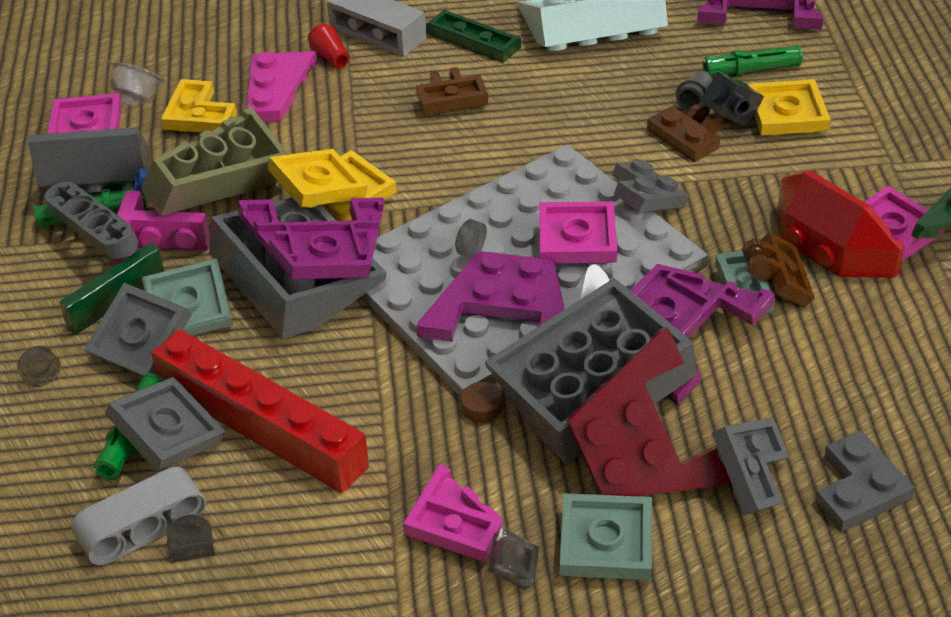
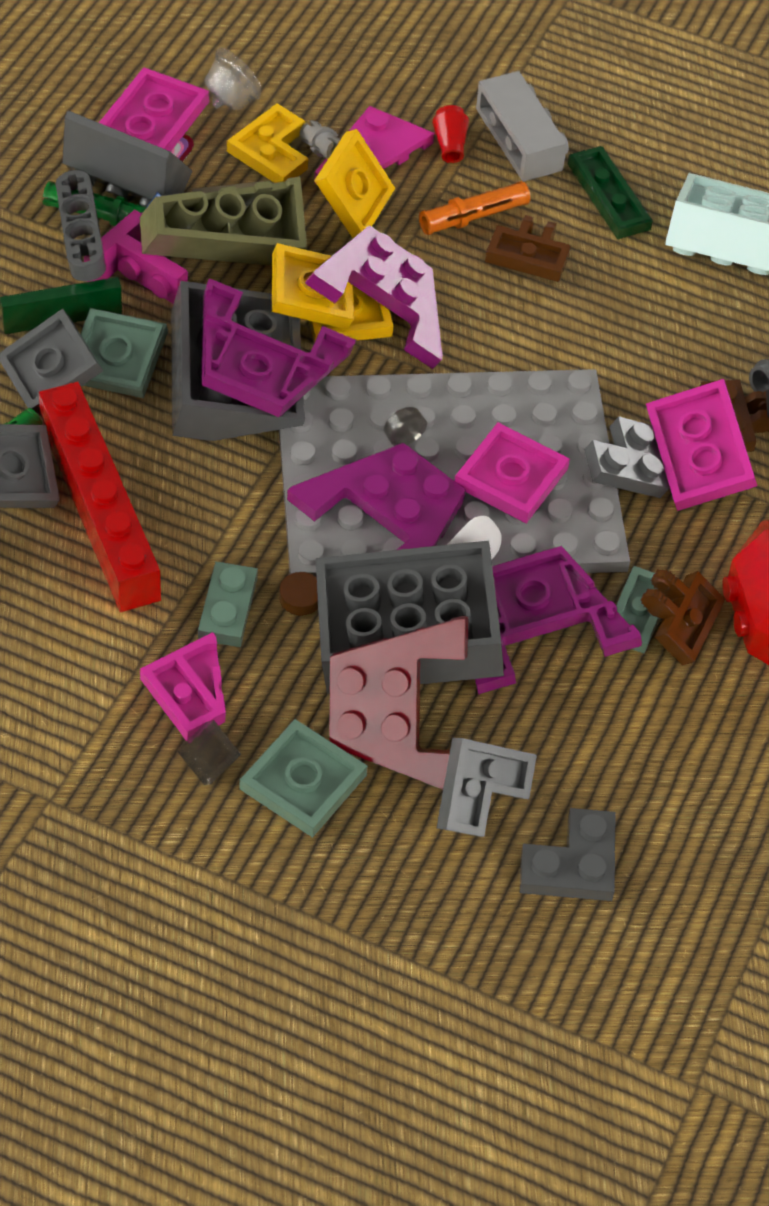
camera: 25 degrees right, 10 degrees up
(240, 87) = (320, 138): none -> light grey pin
(289, 102) = (354, 183): none -> yellow plate
(375, 149) = (391, 278): none -> wing
(379, 90) = (461, 212): none -> orange pin
(429, 438) = (228, 603): none -> sand green plate
(690, 153) = (701, 445): none -> dark pink plate

